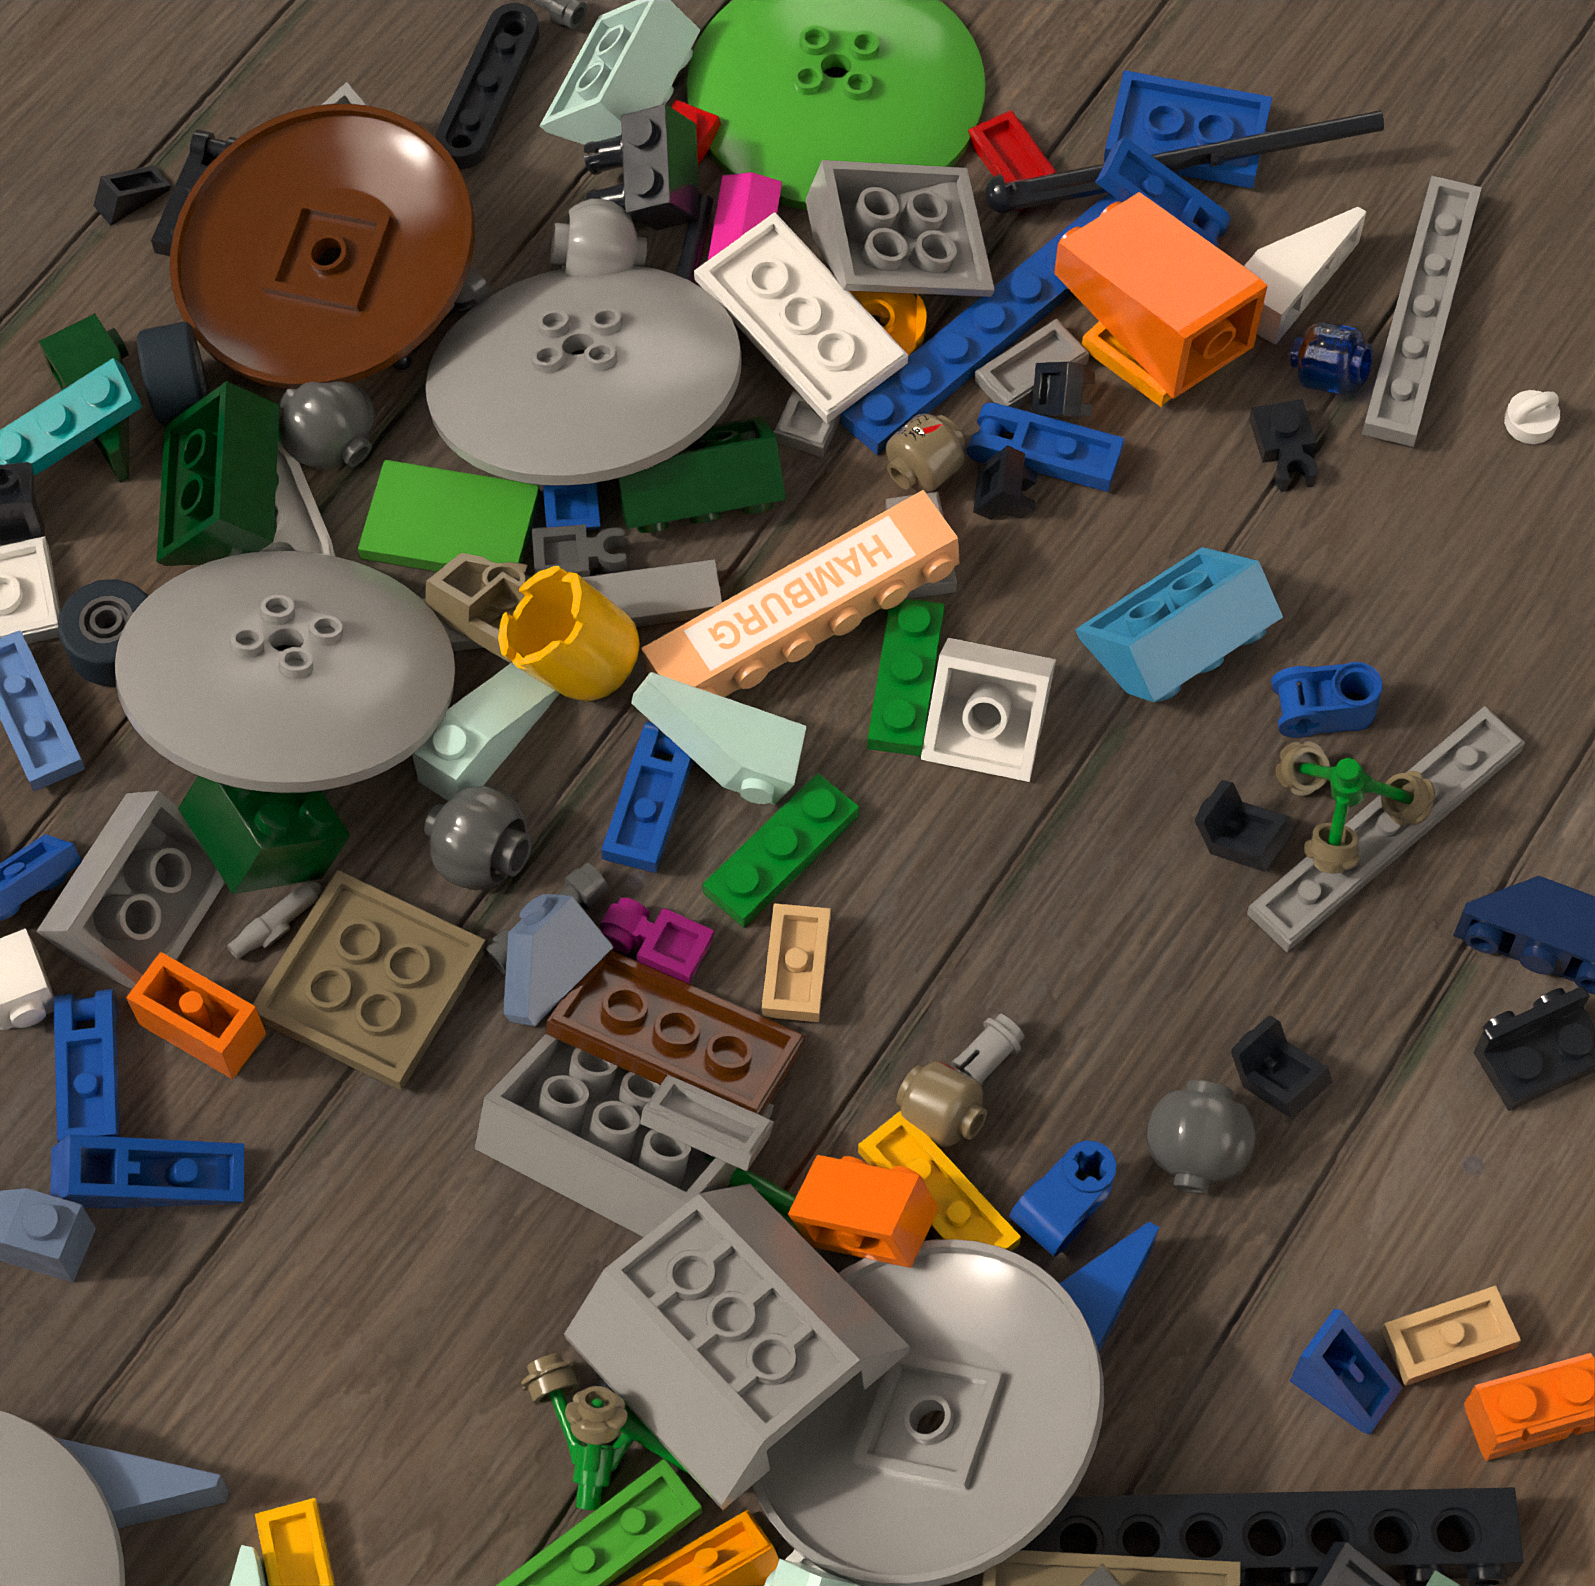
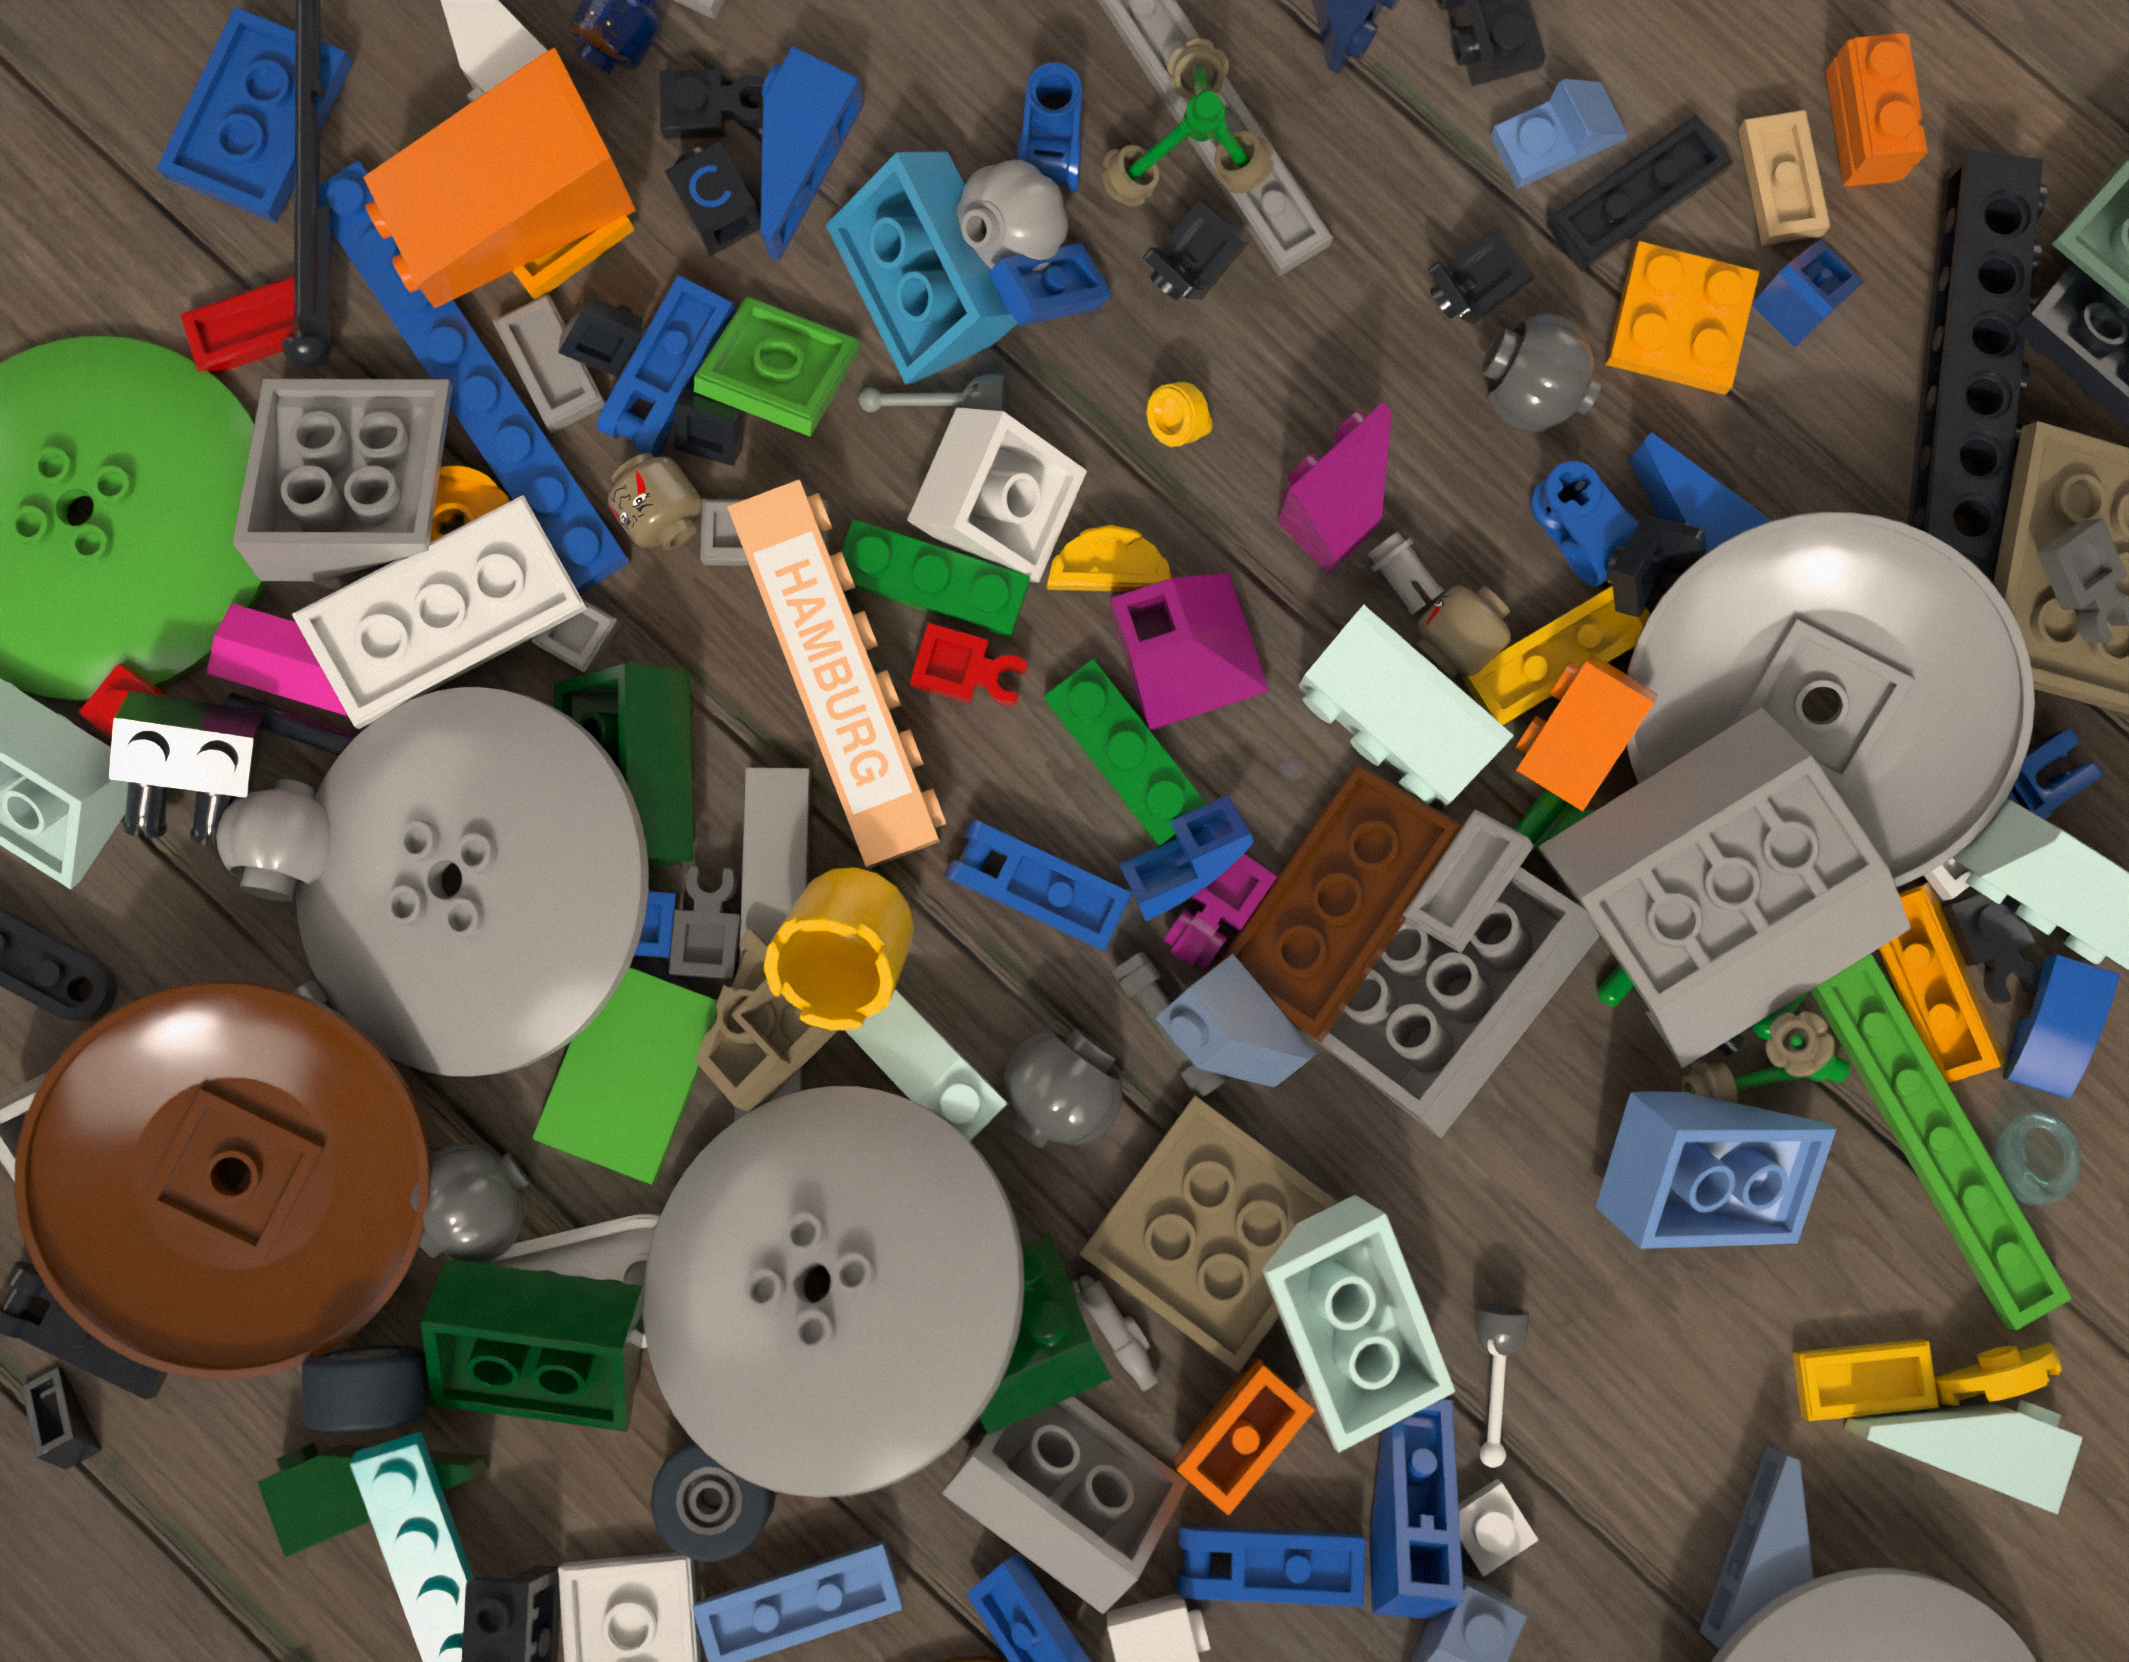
camera: 80 degrees left, 20 degrees up
(134, 1249) = (1493, 1527): none -> white plate
(299, 1075) = (1356, 1321): none -> light aqua slope
(308, 1230) = (1502, 1333): none -> hinge
(471, 1383) = (1711, 1172): none -> medium blue slope
(702, 909) = (1204, 848): none -> blue slope
(728, 739) = (1003, 784): light aqua slope -> none
(796, 962) = (1271, 758): tan plate -> none
(830, 704) = (956, 664): none -> red plate
(854, 1054) = (1402, 710): none -> light aqua slope
(881, 873) = (1186, 647): none -> magenta slope
(948, 808) = (1107, 561): none -> yellow plate
(1032, 1233) = (1651, 550): none -> black bracket
(1047, 971) = (1340, 498): none -> magenta slope
(1062, 522) = (777, 366): none -> bright green tile
(1071, 688) = (983, 393): none -> hinge
(1092, 839) = (1178, 414): none -> yellow tile
(1134, 171) = (331, 177): blue plate -> none
(1182, 712) = (1061, 290): none -> blue plate
(1199, 454) = (713, 197): none -> black brick
(1231, 671) = (1012, 213): none -> light grey plant
(1266, 508) = (804, 127): none -> blue slope
(1289, 1264) = (1682, 318): none -> light orange plate
(1404, 1211) = (1639, 193): none -> black tile
(1446, 1131) = (1559, 132): none -> medium blue slope

